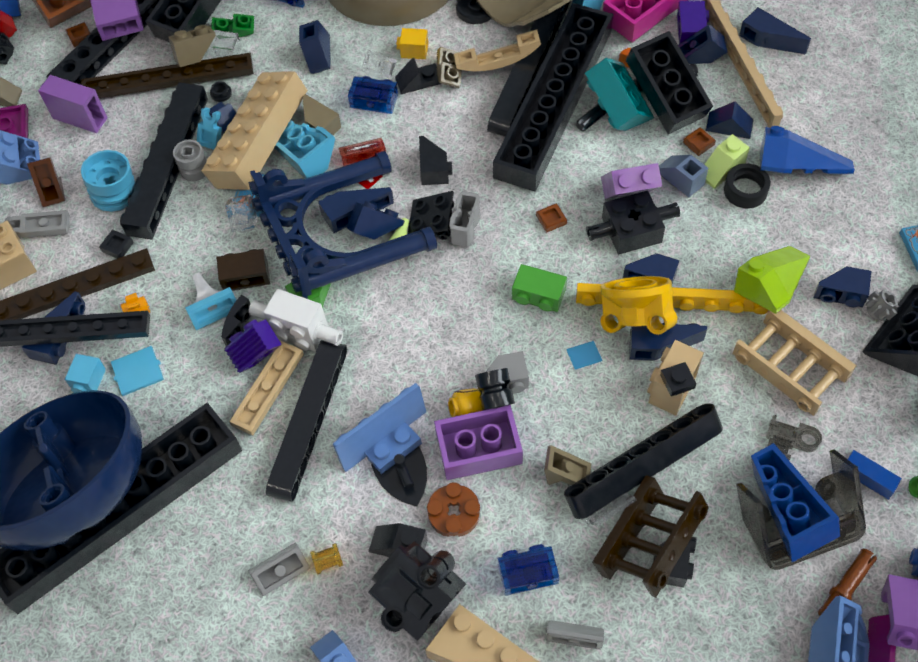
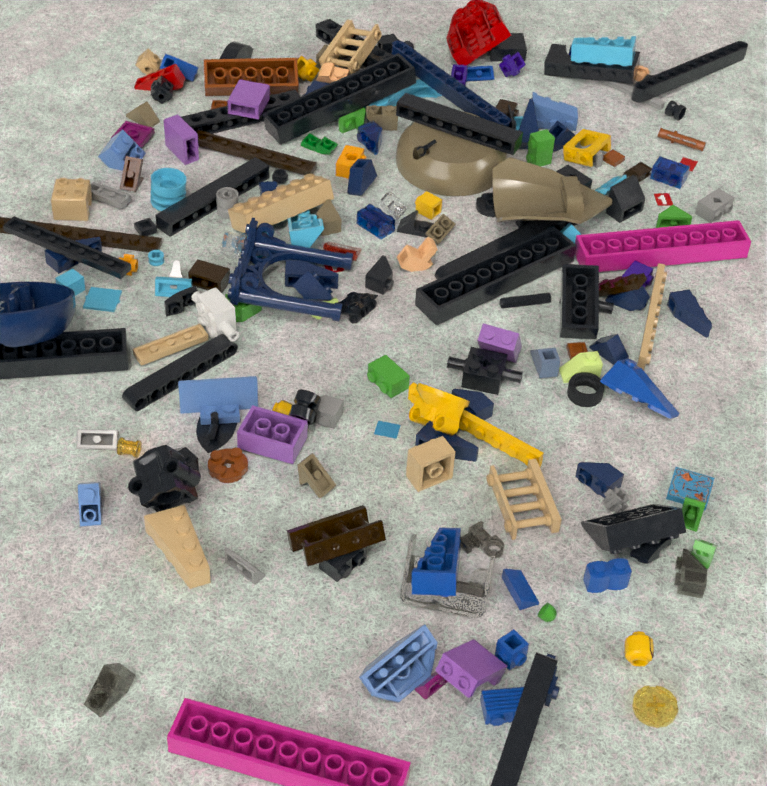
camera: 25 degrees right, 15 degrees down
(164, 282) = (156, 257): none -> medium azure bush
(191, 45) = (279, 140): dark tan slope -> none
(208, 132) = (253, 189): medium azure plate -> none
(225, 44) = (303, 150): clear brick -> none
(252, 345) = (178, 314): dark purple brick -> none
(286, 31) = (347, 159): none -> light orange brick
(455, 118) = (417, 259): none -> light nougat brick
(465, 219) = (372, 314): light grey brick -> none
(498, 58) = (458, 231): tan slope -> none
(528, 569) = (244, 516): clear blue brick -> none
(551, 217) = (434, 344): dark orange tile -> none
(609, 510) = (321, 509): clear piece -> none
(618, 94) = (540, 294): teal slope -> none
(643, 459) = (372, 498): black beam -> none
(678, 379) = (423, 455): black plate -> none
(699, 34) = (621, 284): none -> dark brown plate
(772, 277) = (544, 441): lime wedge -> none
(851, 578) = (454, 633): dark orange pin -> none

